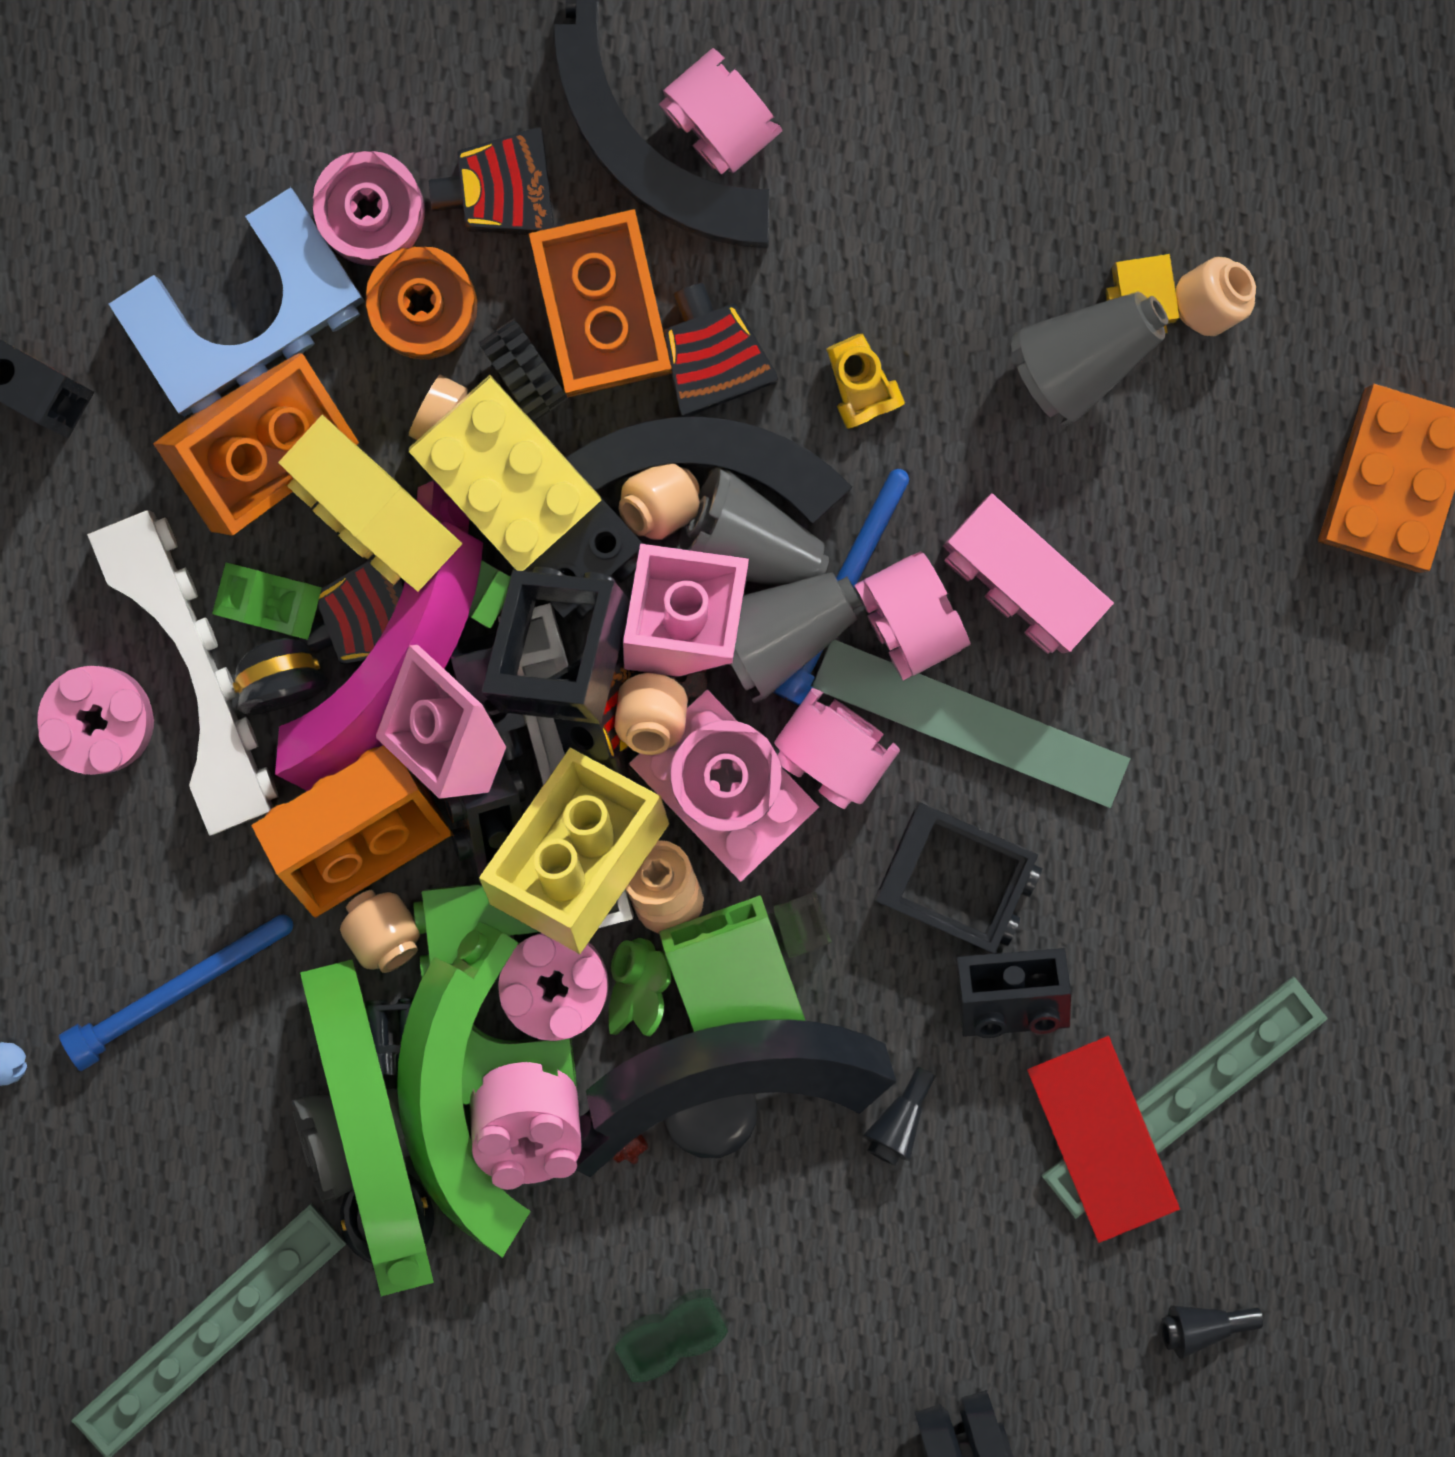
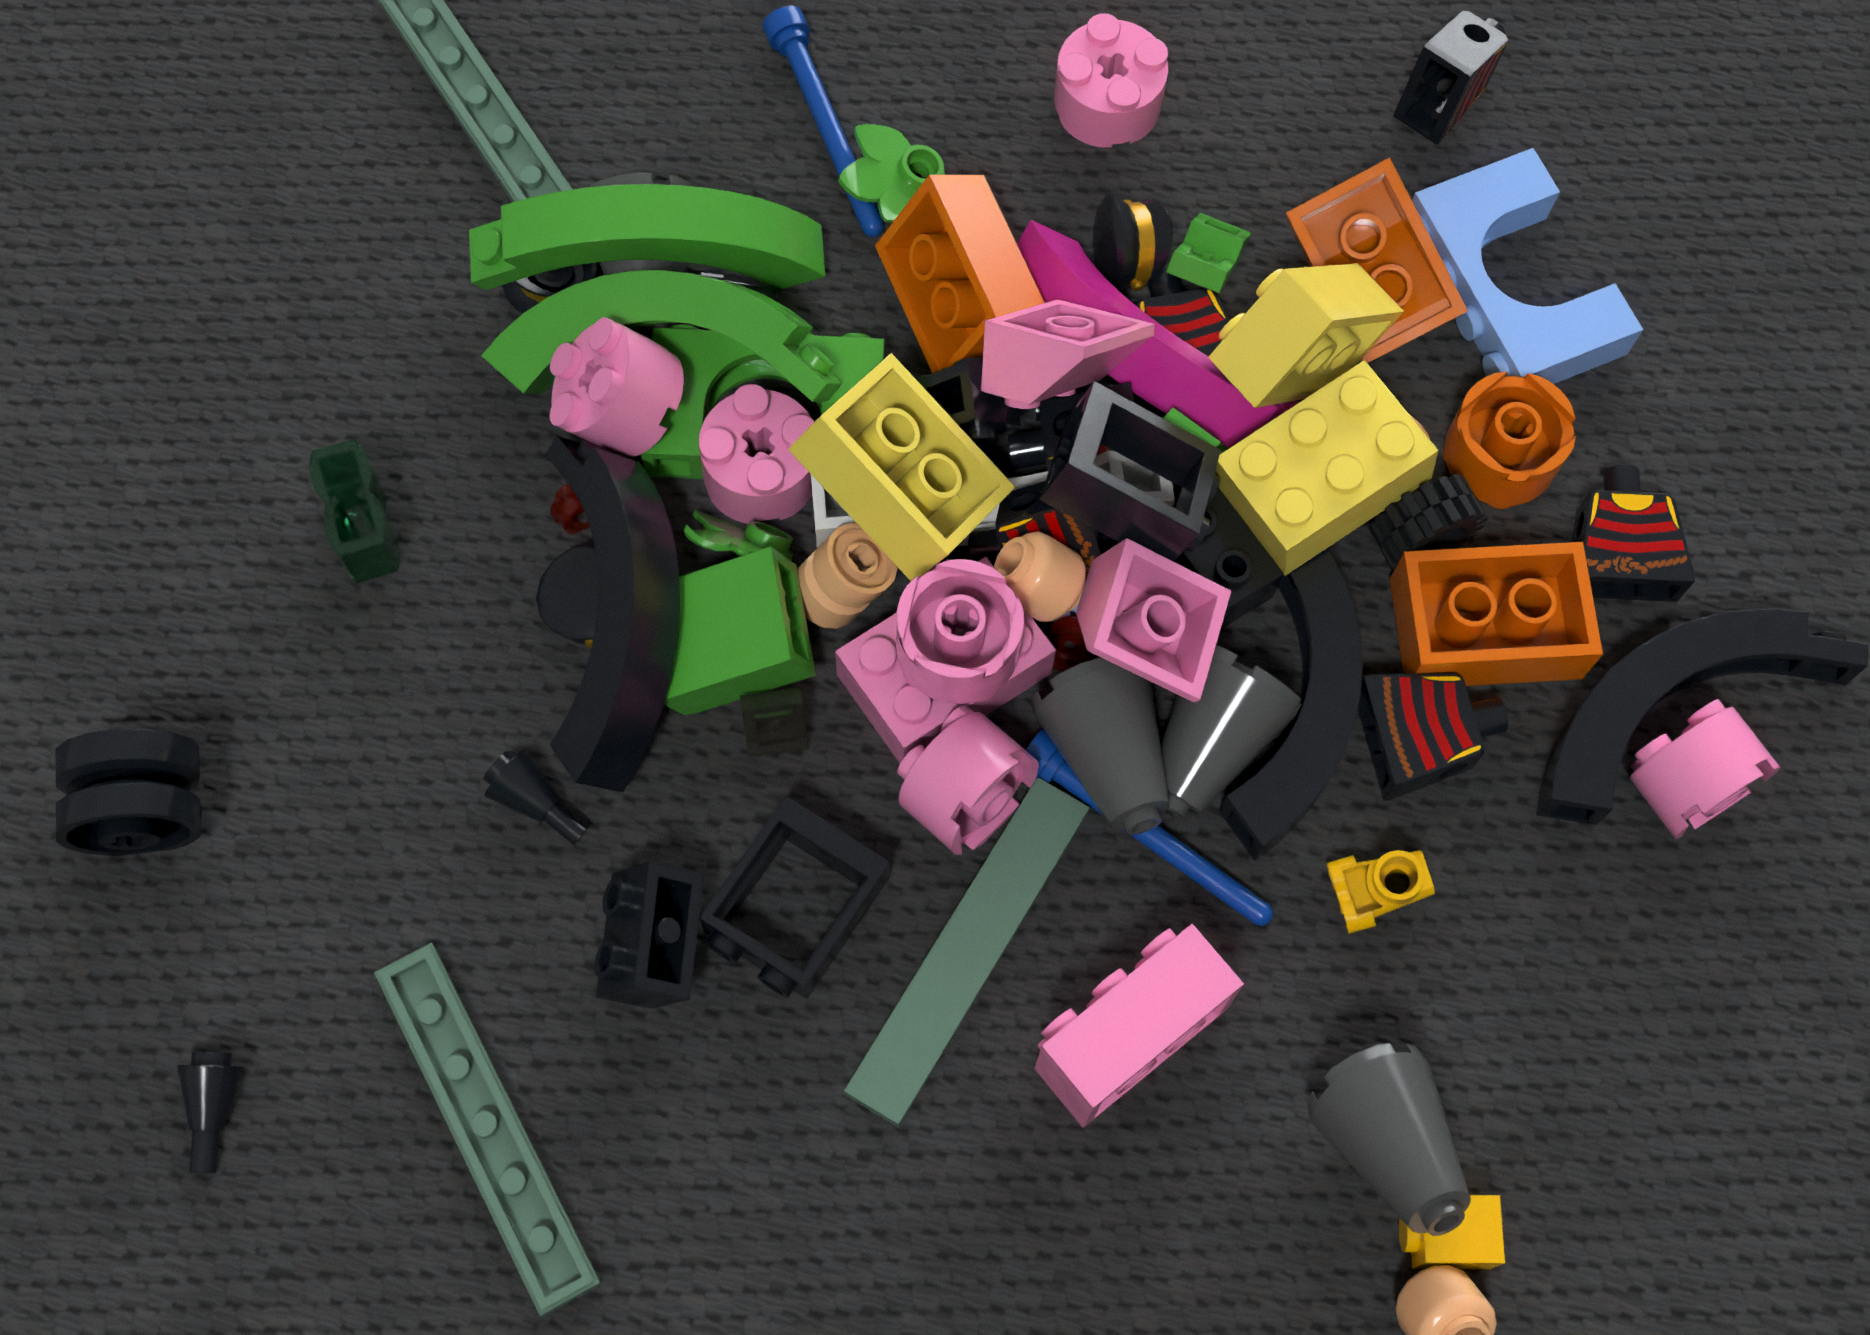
camera: 95 degrees right, 20 degrees down
(225, 776) = (1259, 149): white arch -> none
(230, 923) = (887, 169): none -> bright green plate
(368, 177) = (1621, 401): bright pink brick -> none
(380, 931) = (849, 302): light nougat head -> none
(659, 501) = (1272, 639): light nougat head -> none
(912, 615) = (1106, 889): bright pink brick -> none
(1103, 1139) = (456, 1018): red sticker -> none

